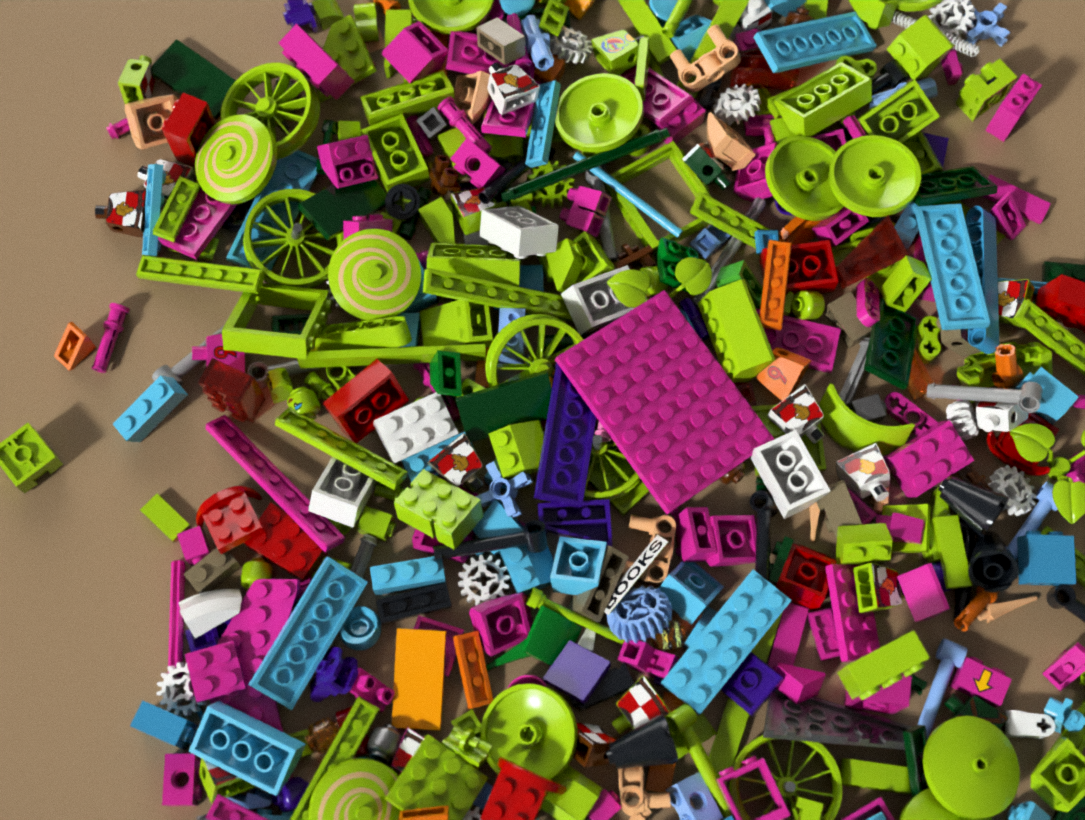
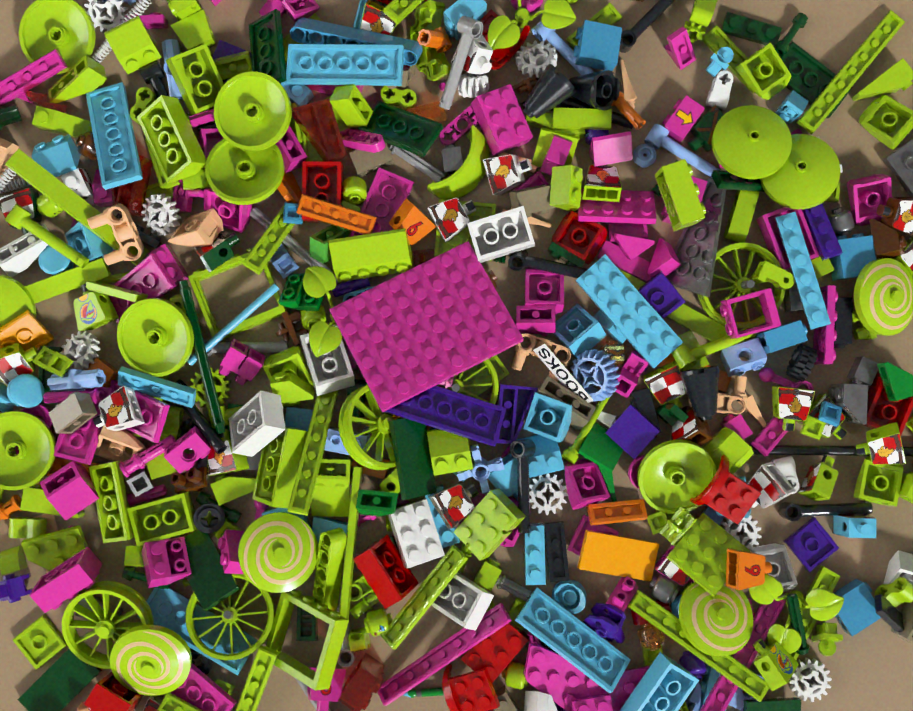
camera: 80 degrees left, 15 degrees up
(224, 468) = (424, 692): none -> green piece
(241, 52) = (40, 641): none -> lime tile
(606, 716) = (671, 413): none -> dark green slope
(808, 637) = (632, 245): none -> dark pink slope
(931, 638) = (642, 161): none -> light blue plate
(953, 110) = (195, 31): none -> lime torso

